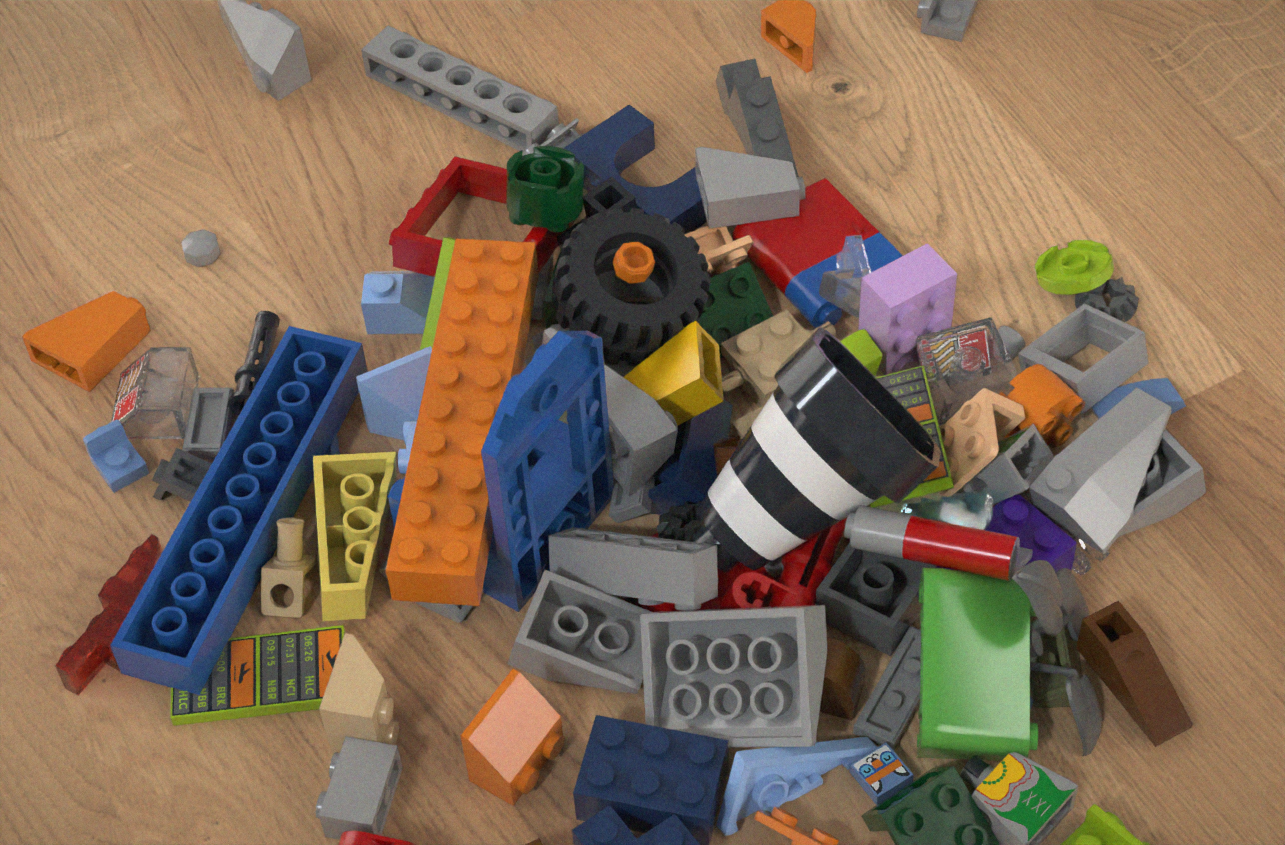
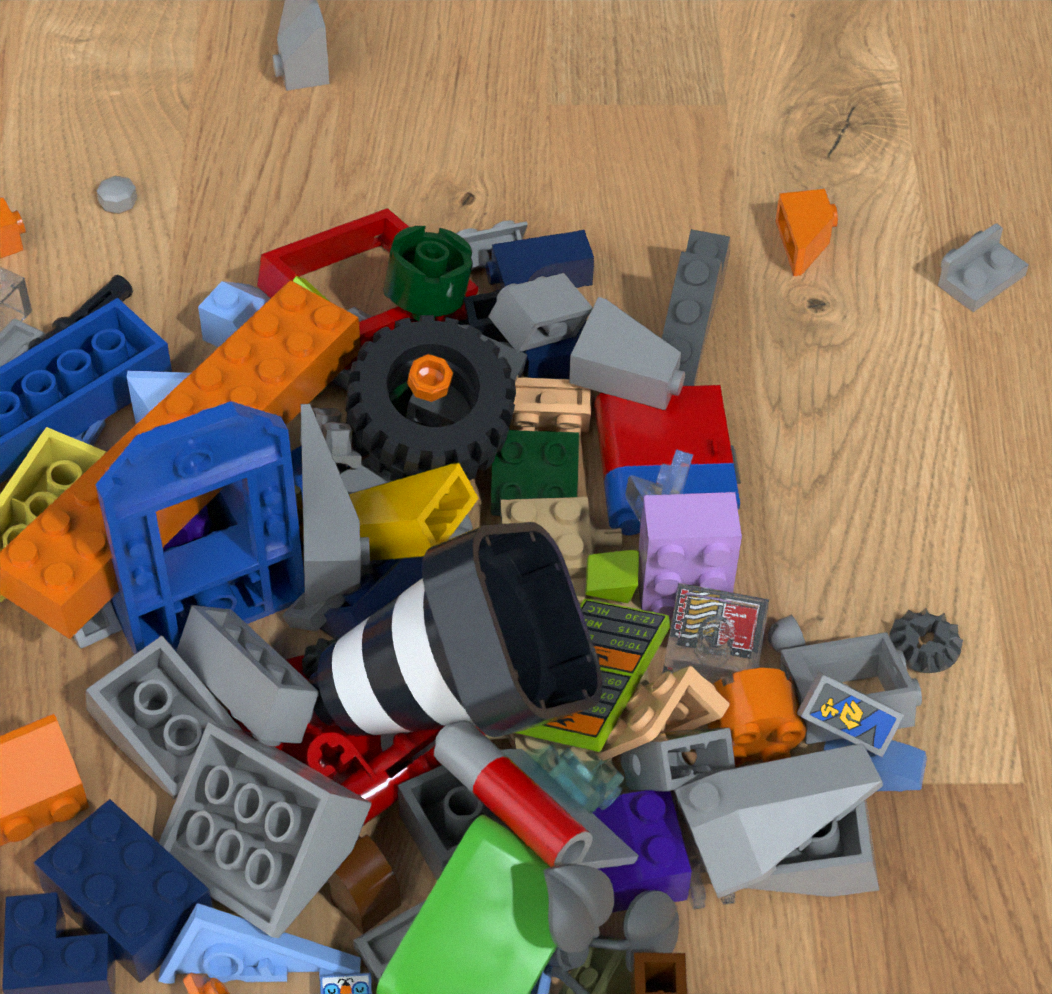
camera: 25 degrees right, 0 degrees up
(459, 89) = (446, 147): light grey brick -> none
(656, 179) = (540, 312): none -> light grey brick
(1074, 268) = (912, 591): lime tile -> none
(1109, 371) = (850, 714): none -> tile

